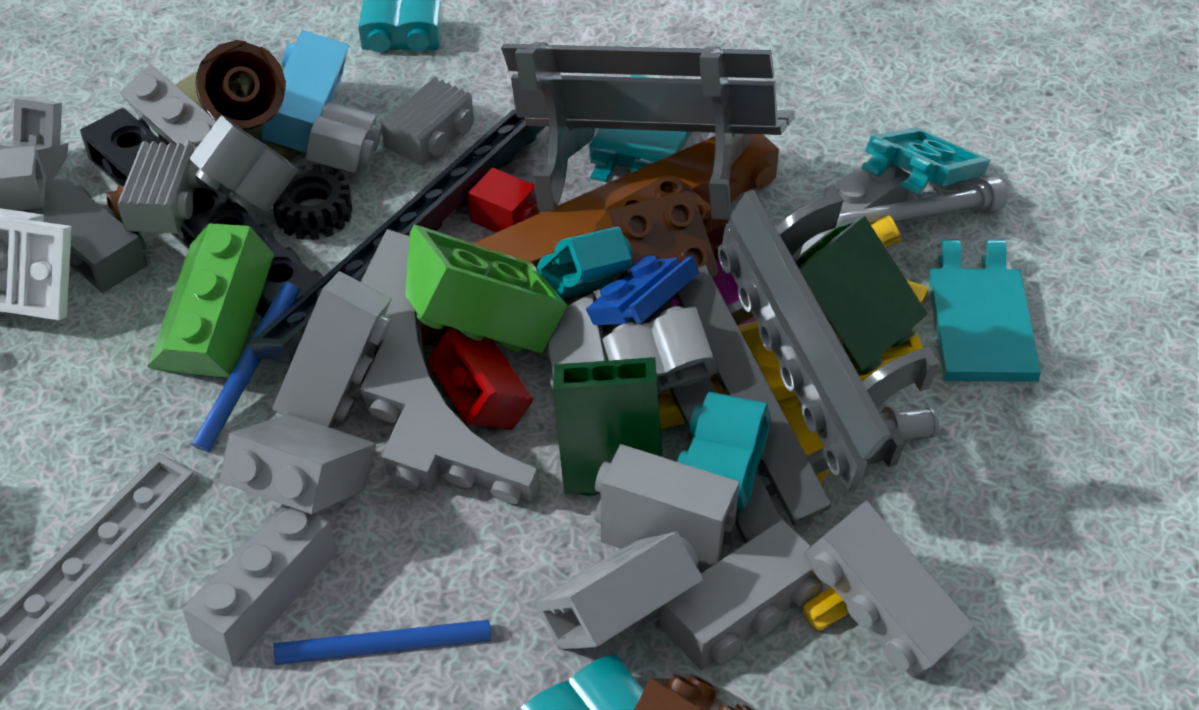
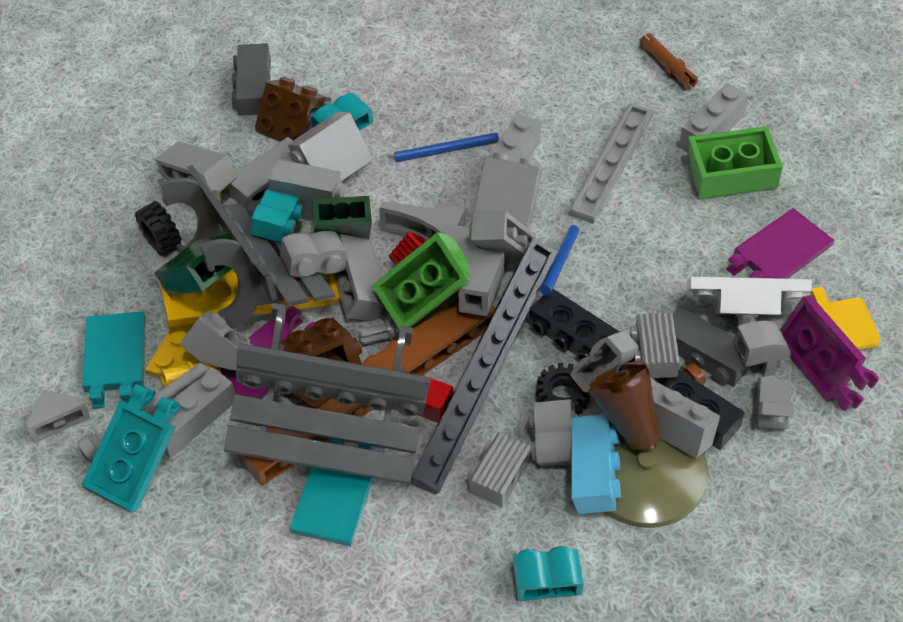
camera: 175 degrees right, 5 degrees up
(213, 302) = (595, 283): bright green slope -> none
(586, 262) = (364, 311): teal brick -> none
(642, 290) = (325, 283): blue plate -> none
(945, 482) = (158, 227): none -> black tyre
(1045, 233) = (54, 414): none -> light grey slope

